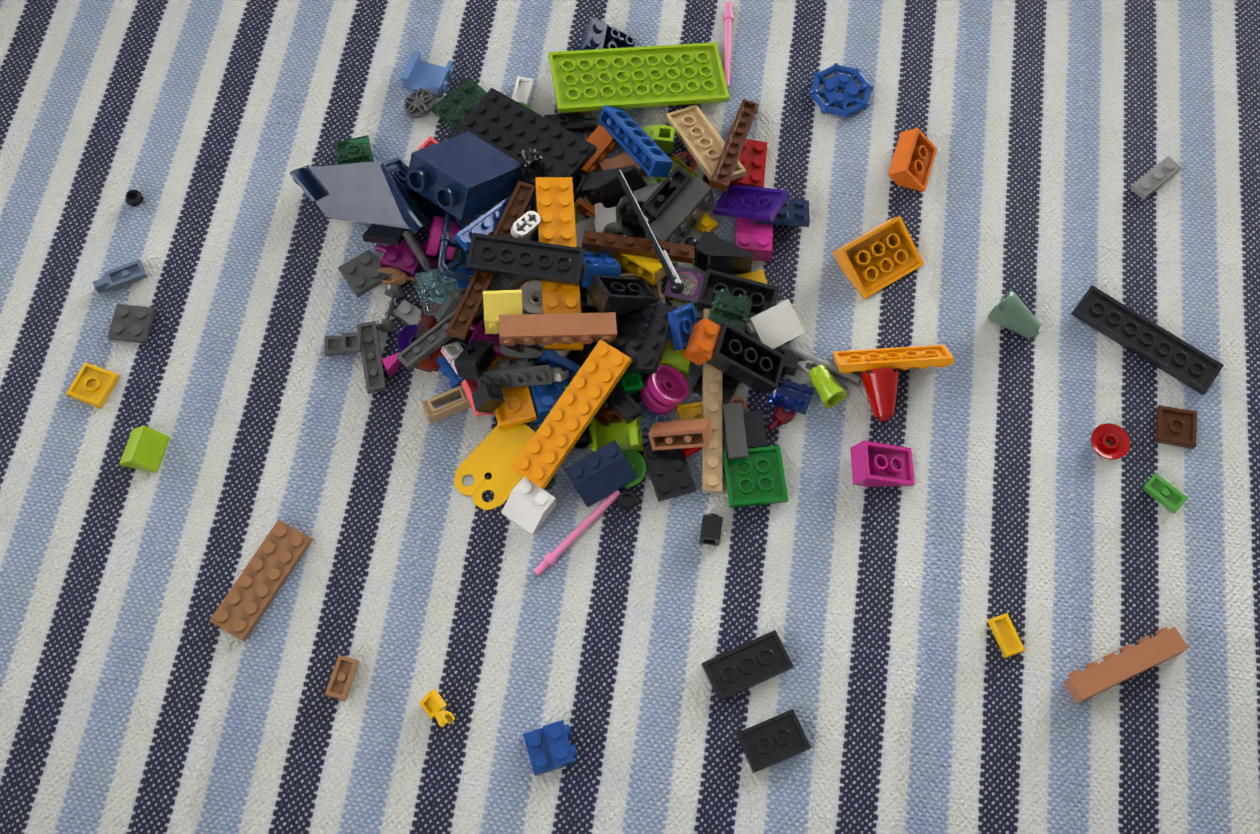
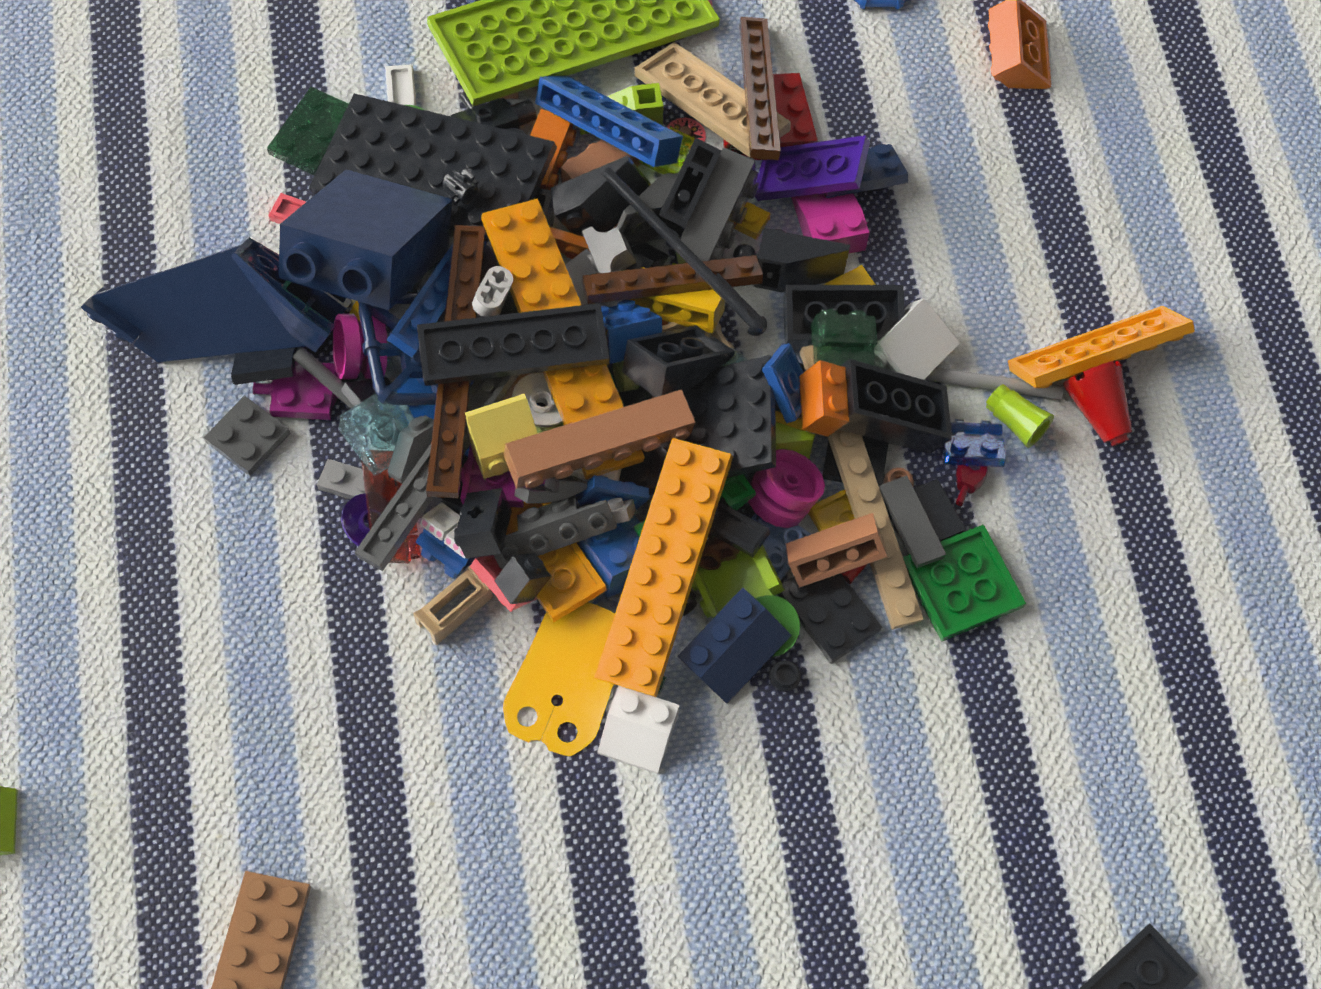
camera: 20 degrees left, 0 degrees up
(342, 345) = (254, 558): dark grey slope -> none
(353, 150) = (167, 246): clear green plate -> none
(371, 357) = (307, 565): dark grey plate -> none
(386, 325) = (307, 452): dark grey wheel -> none
(391, 364) = (344, 566): dark pink slope -> none
(399, 276) = (307, 427): medium nougat hand -> none
(419, 103) = (246, 146): dark grey wheel -> none
(427, 75) = (244, 102): medium blue panel -> none
(551, 558) = (700, 802): bright pink bar -> none
(692, 282) = (766, 305): tile -> none
(711, 529) = (928, 683): black brick -> none
(747, 666) = (1057, 878): black plate -> none
(792, 363) = (959, 394): black piece -> none
(878, 257) = (1023, 200): light orange slope -> none
(881, 465) = (1140, 511): dark pink slope -> none
(1015, 316) = (1248, 236): sand green cone -> none

